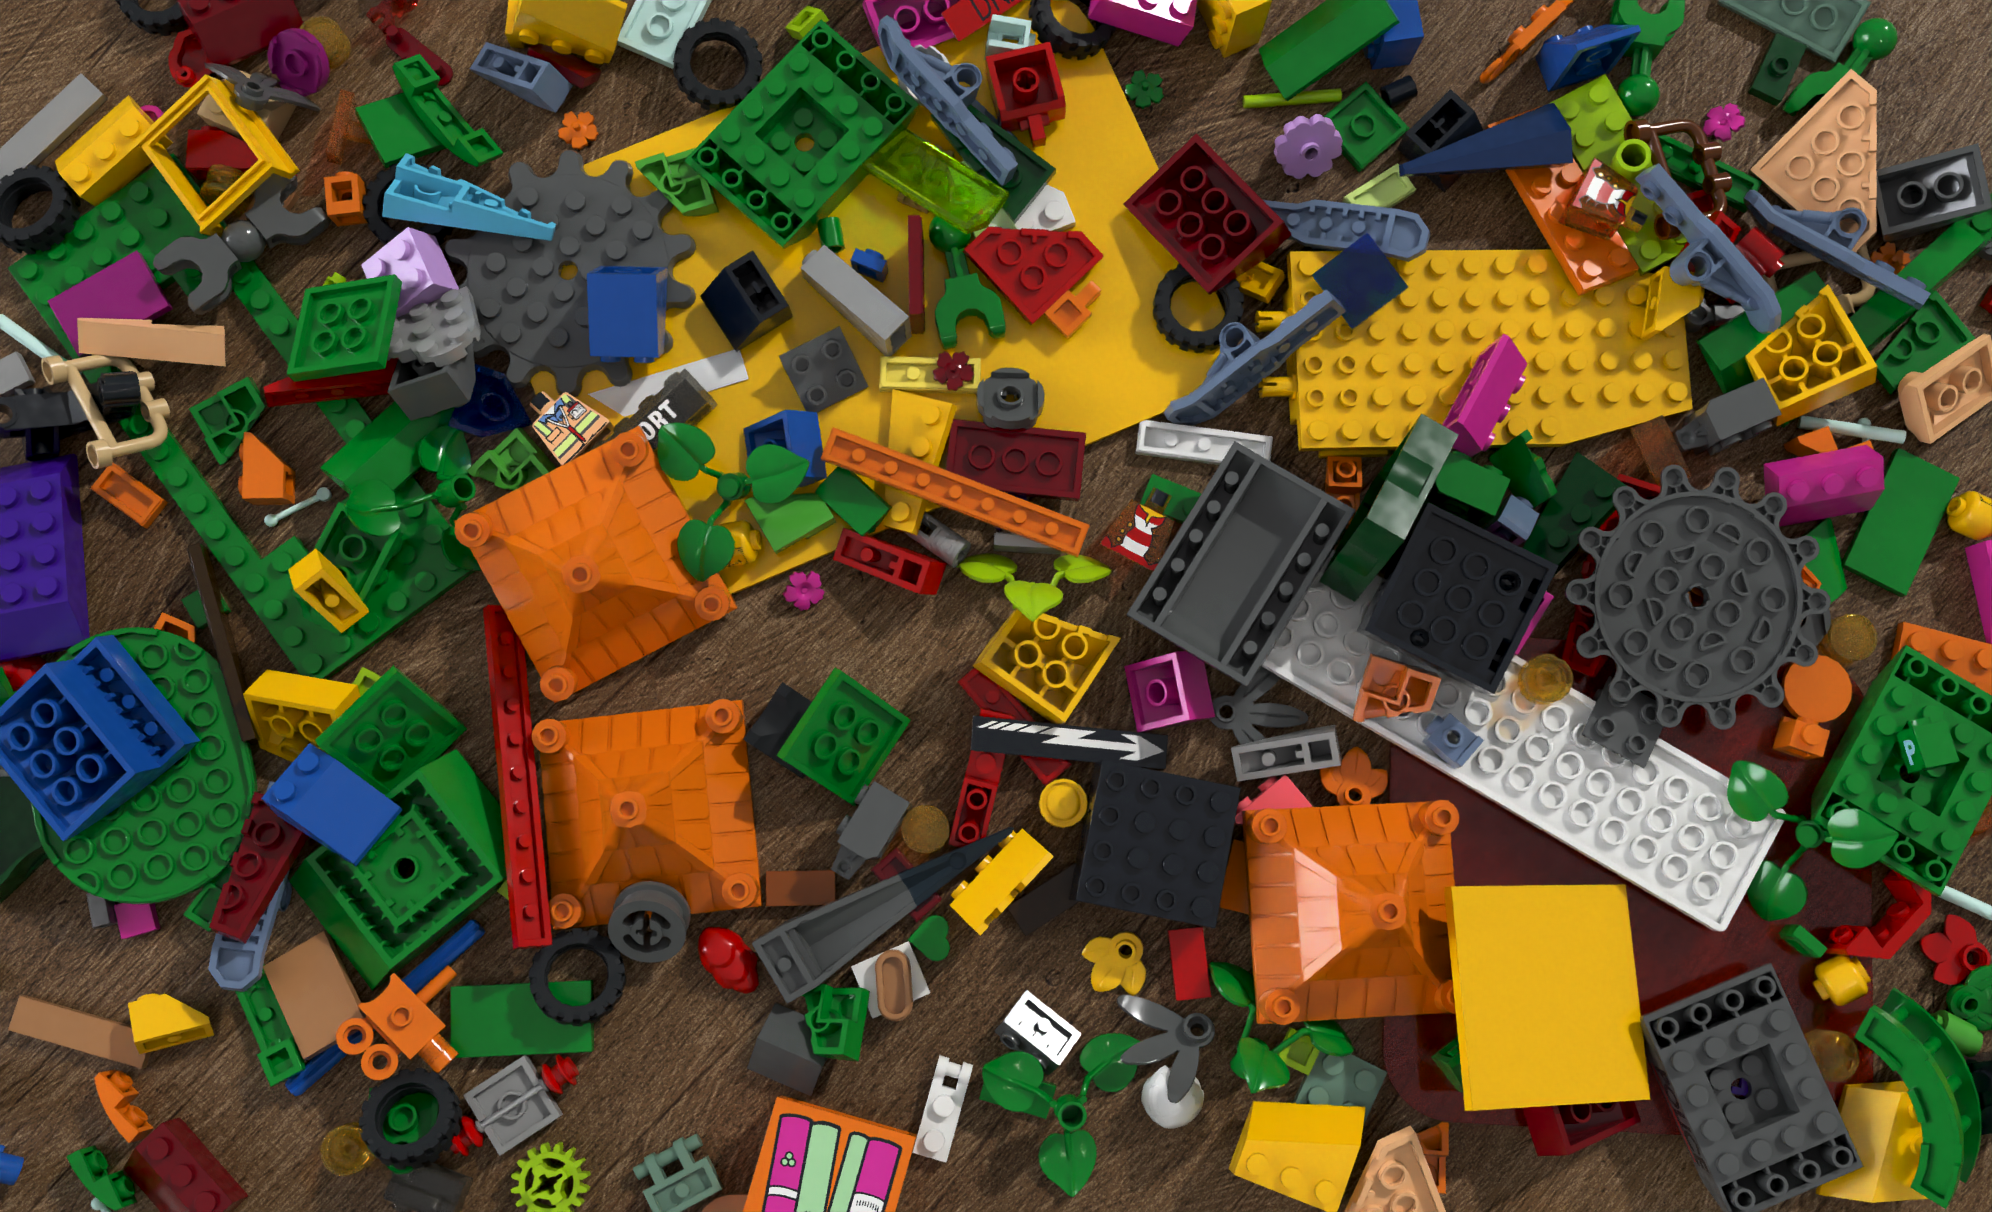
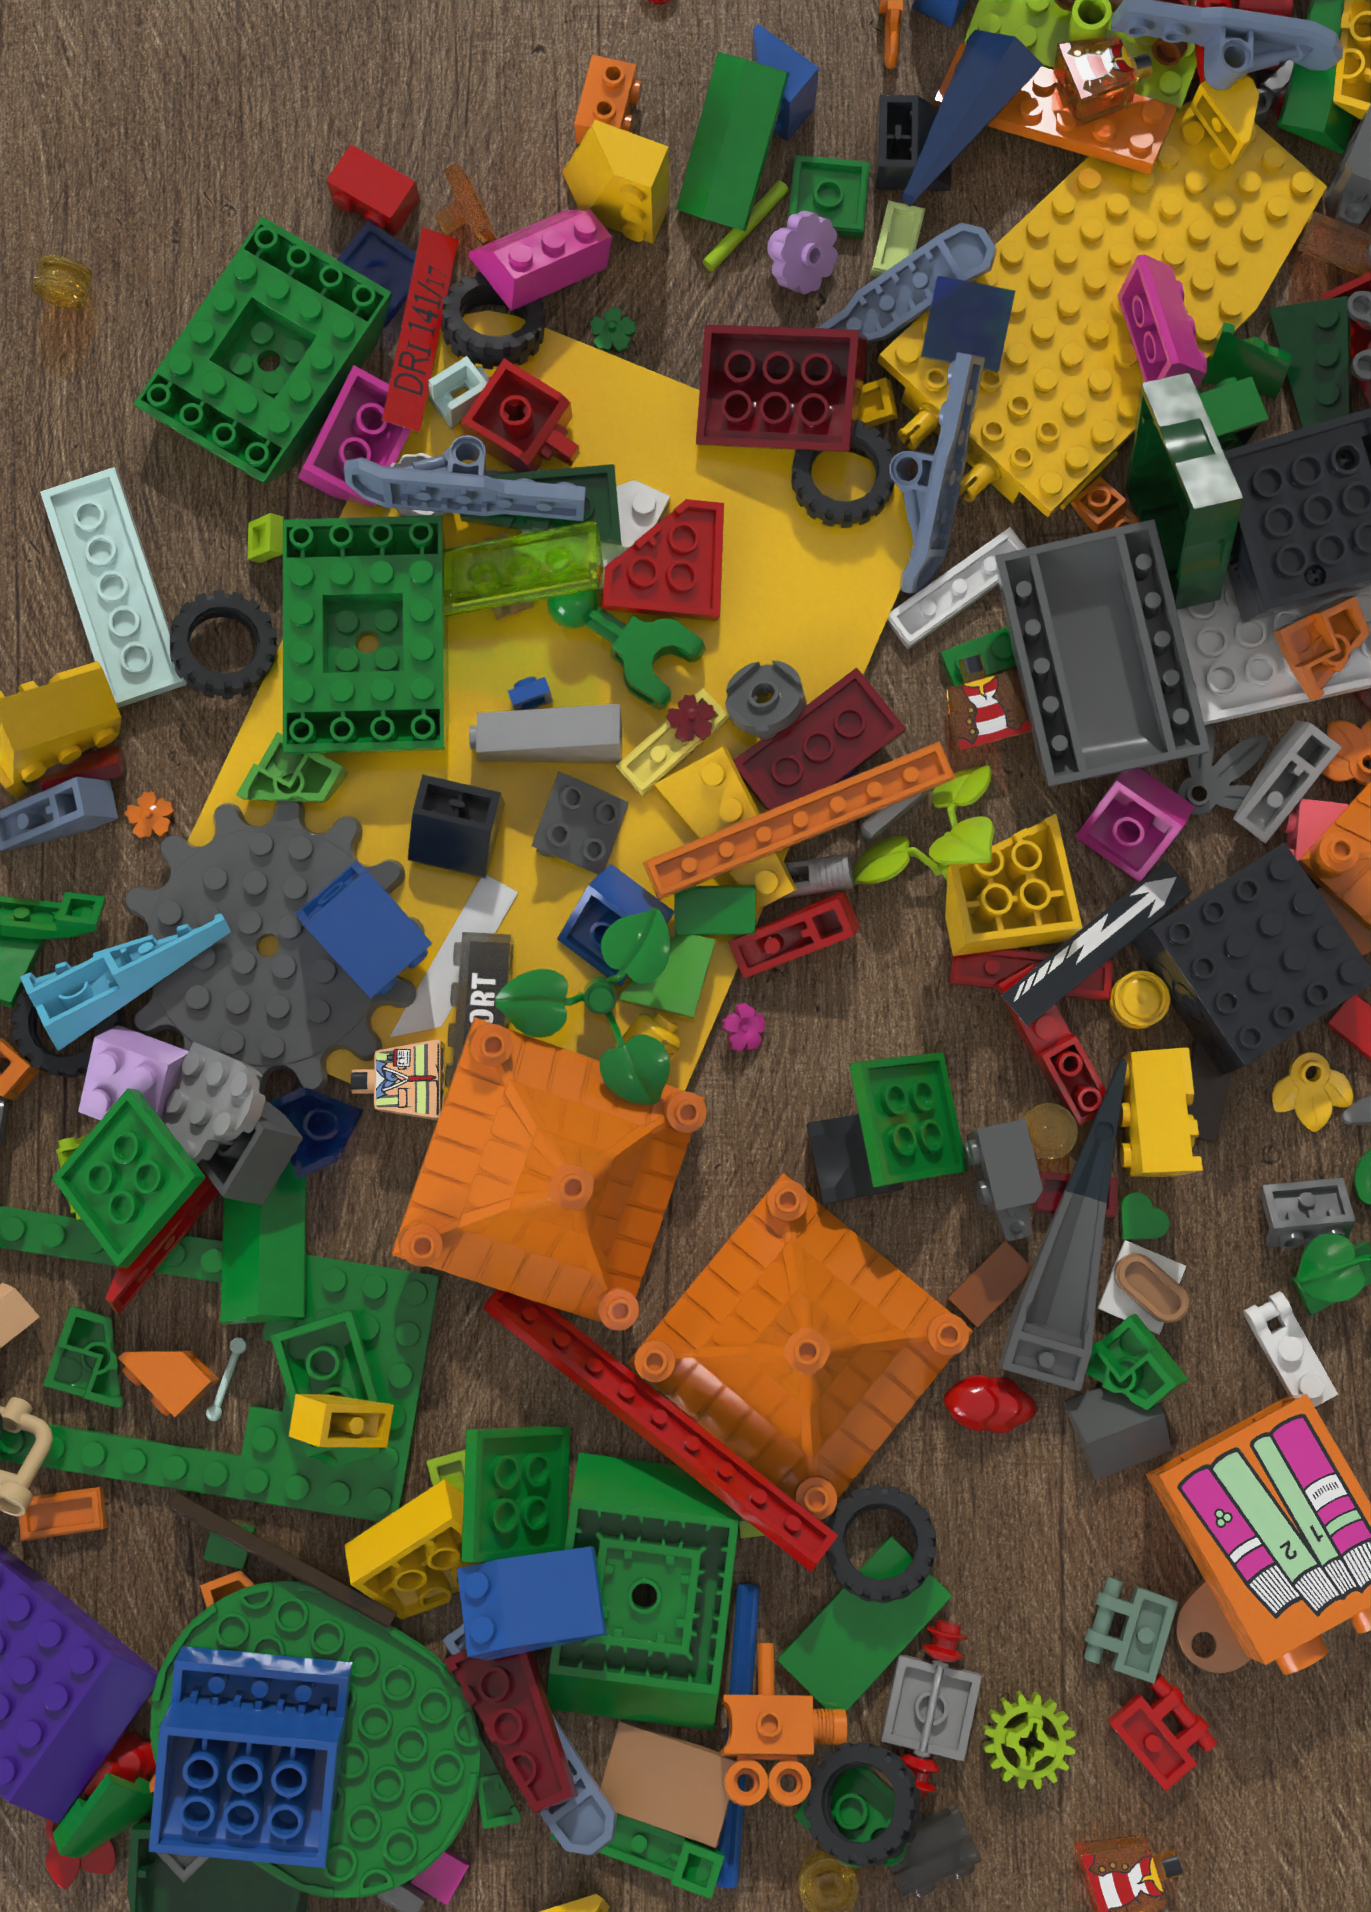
camera: 40 degrees left, 0 degrees up
(443, 452) = (319, 1207): green plant -> none
(512, 462) = (385, 1158): bright green slope -> none
(668, 921) = (881, 1452): dark grey wheel -> none
(831, 234) = (469, 700): green hinge -> none
(916, 274) = (580, 662): dark red tile -> none
(1070, 311) = (741, 576): orange plate -> none
(1399, 91) = (830, 137): black hinge -> none
(1513, 520) = (1285, 410): sand blue slope -> none

